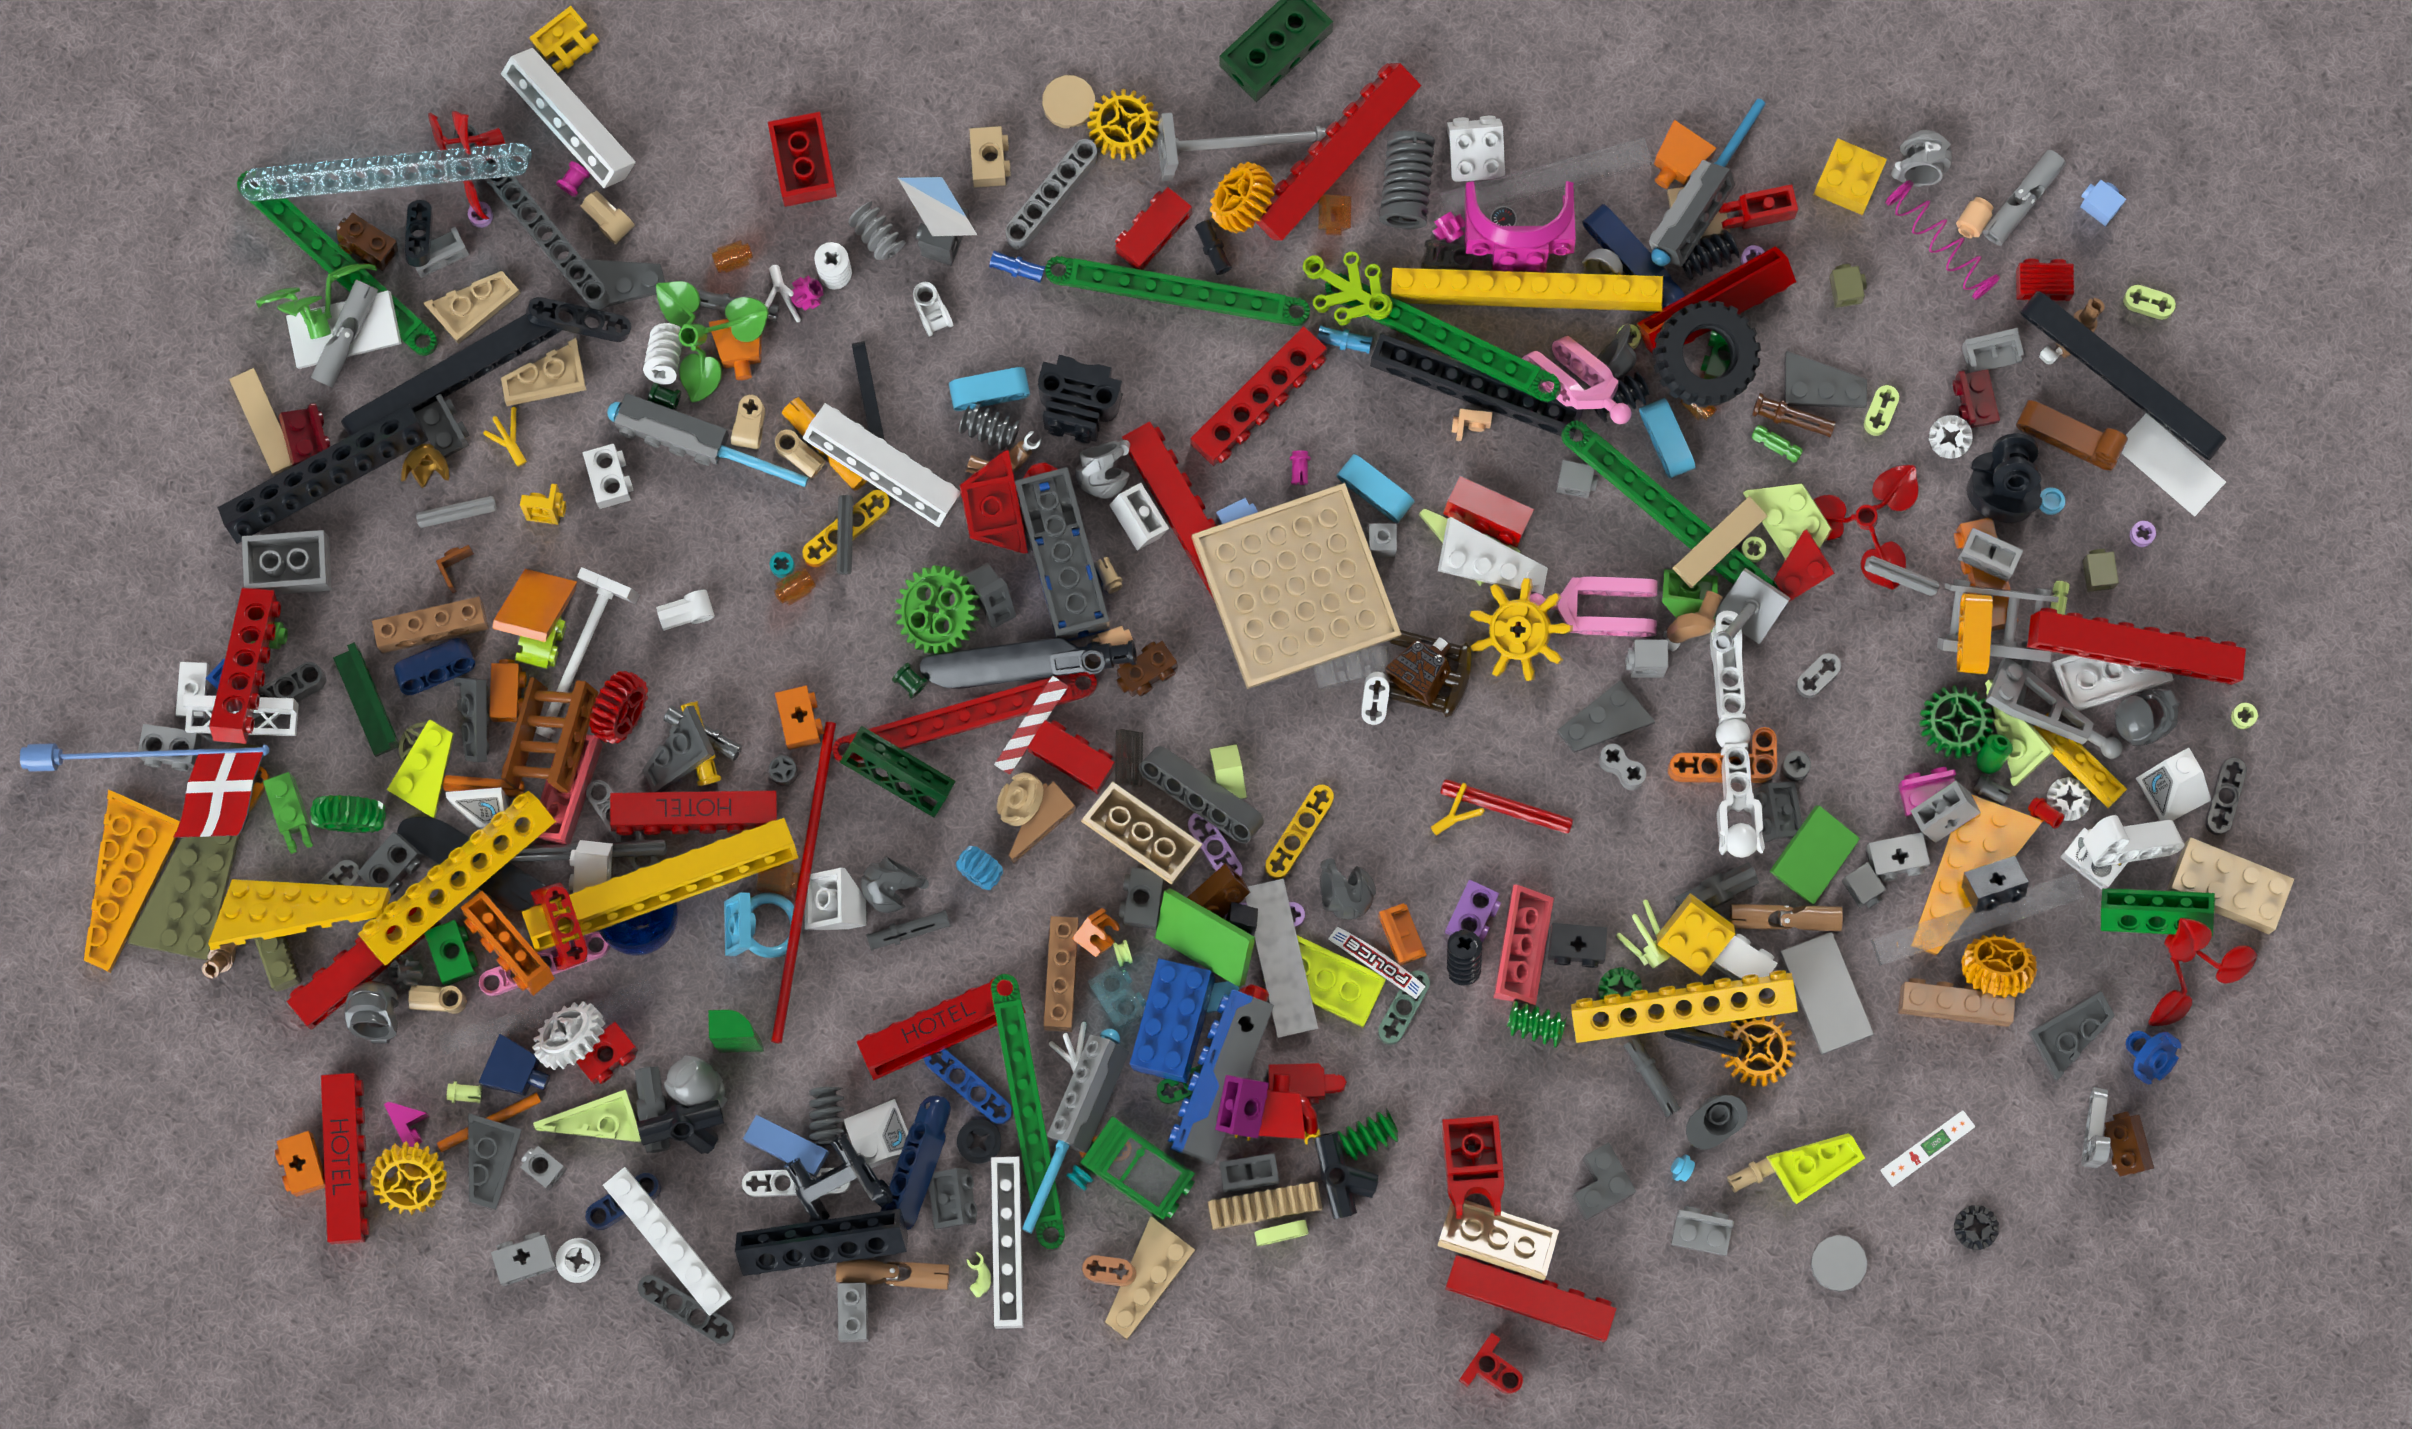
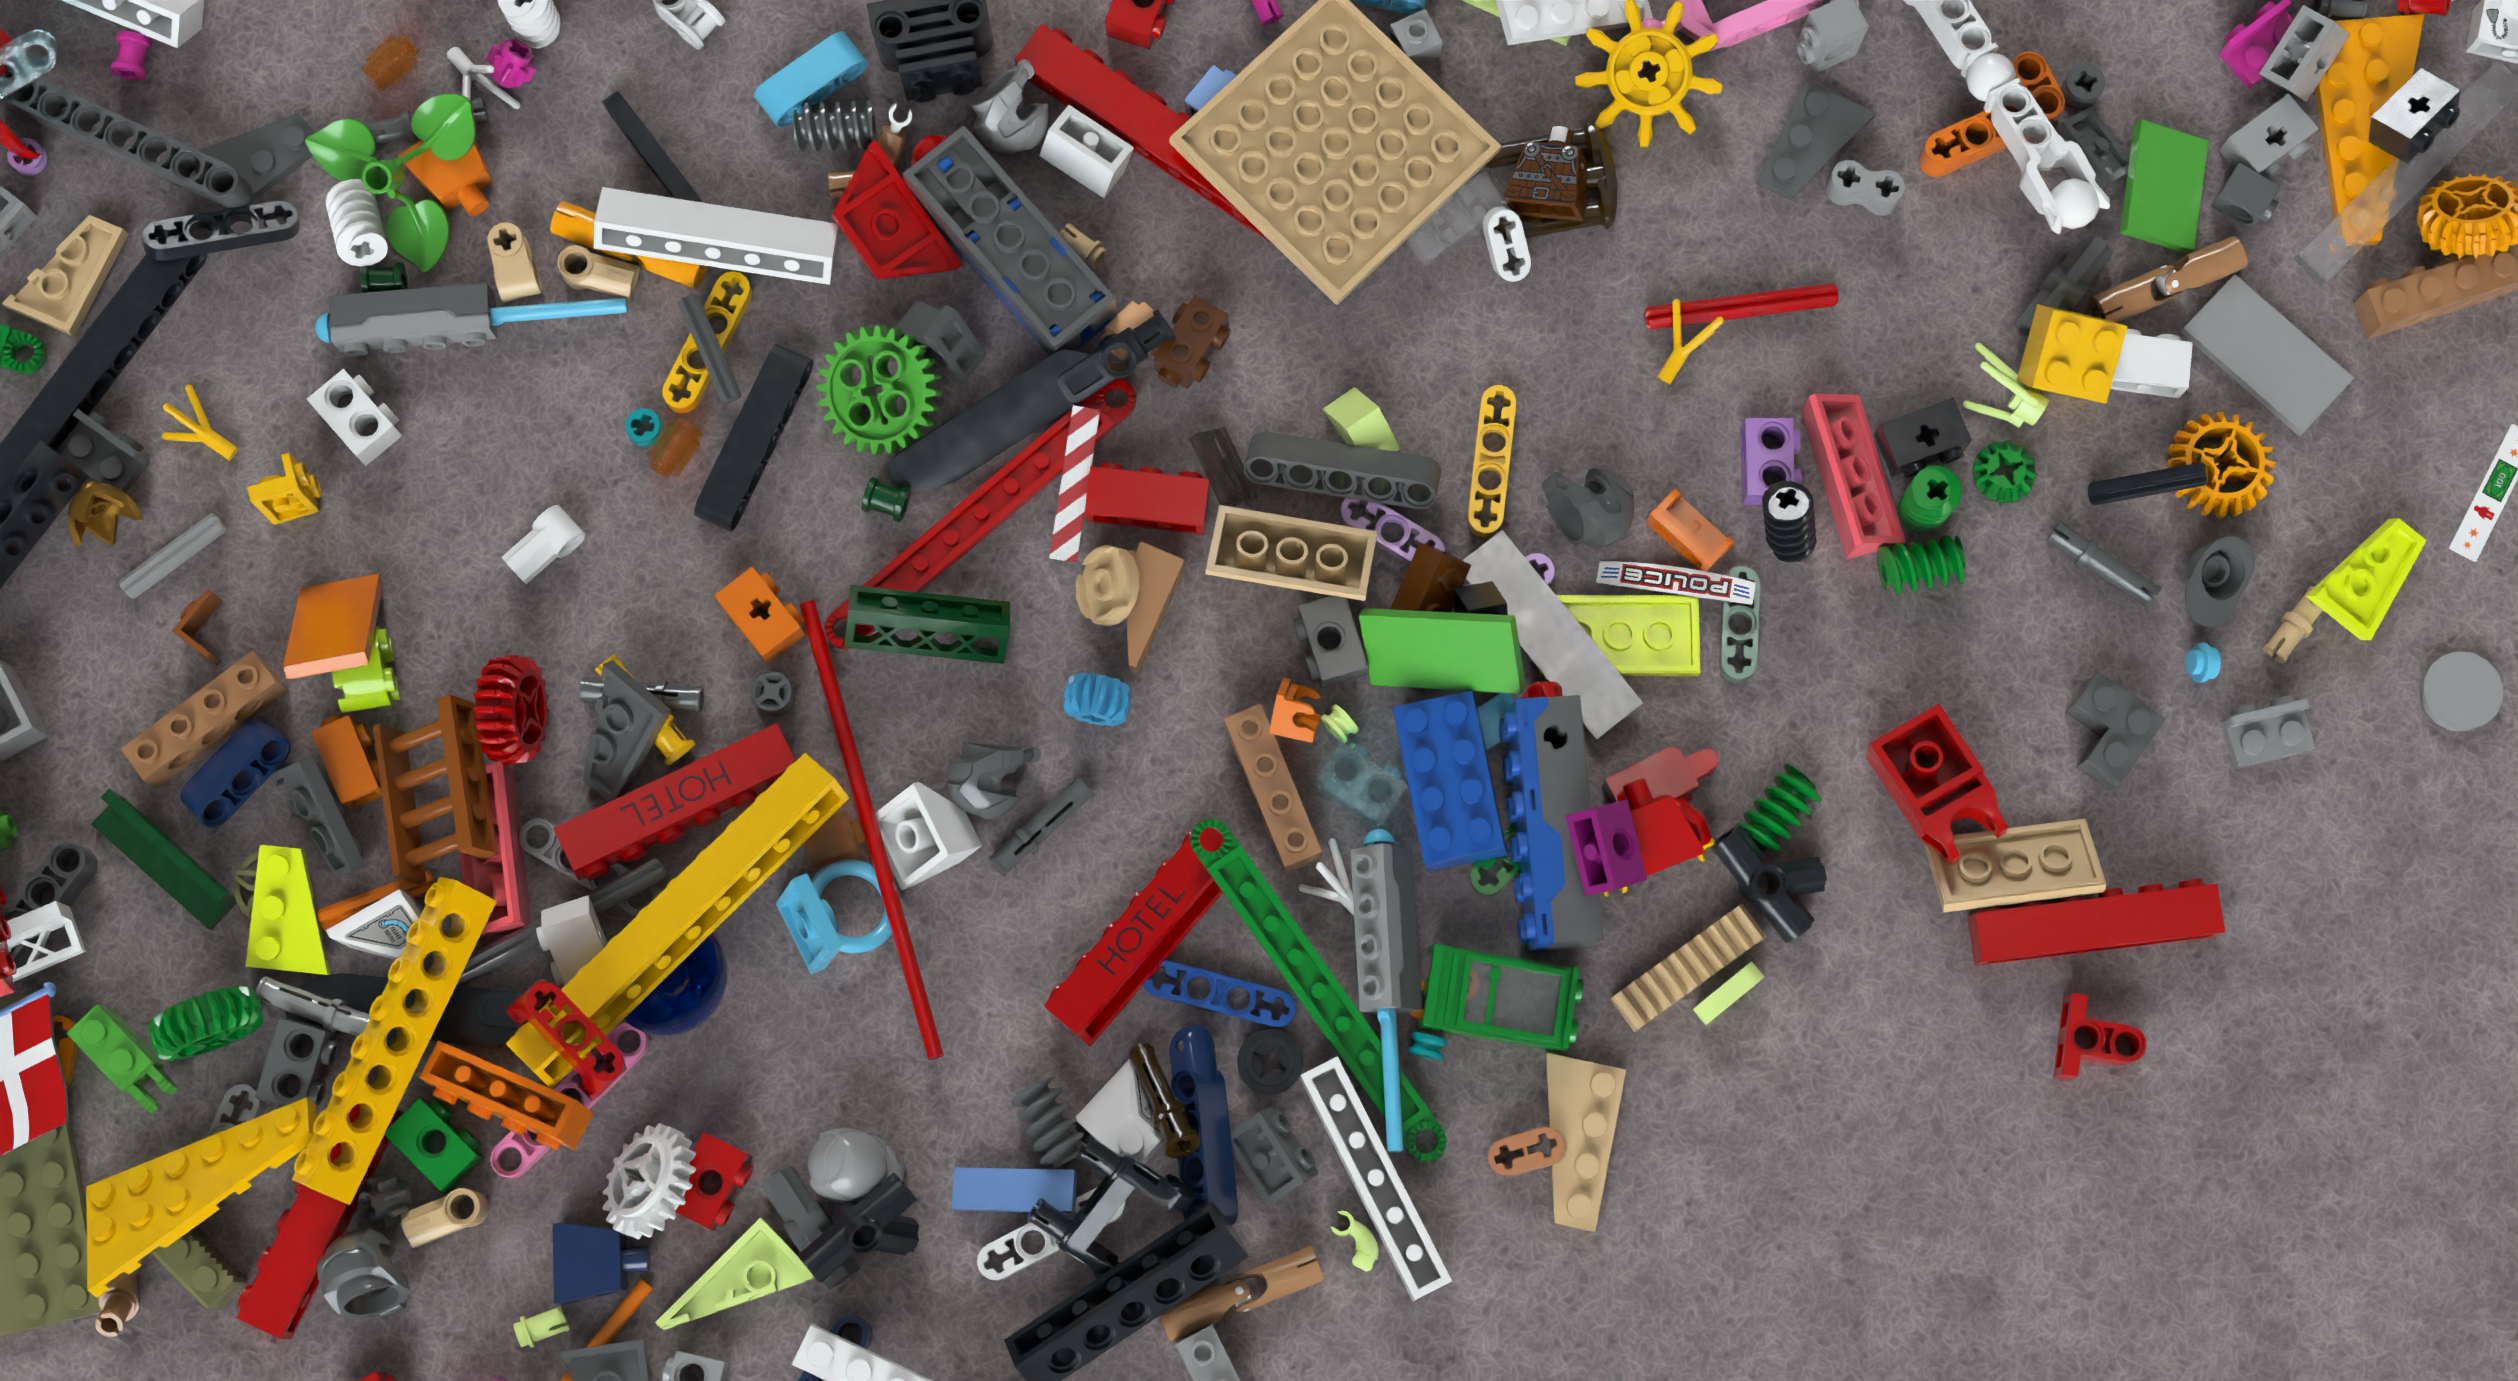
camera: 25 degrees left, 0 degrees up
(425, 844) = (331, 1013): none -> light grey pin
(548, 377) = (218, 323): tan wing -> none
(606, 589) = (423, 562): white tile -> none
(611, 221) = (208, 87): tan piece -> none
(732, 1032) = (872, 1070): green brick -> none
(846, 603) = (753, 437): none -> black beam
(900, 1143) = (1168, 1114): none -> dark brown pin
(1249, 1173) = (1649, 933): dark grey brick -> none
(1565, 976) = (1929, 499): none -> green piece
(1698, 1014) = (2226, 385): yellow brick -> none

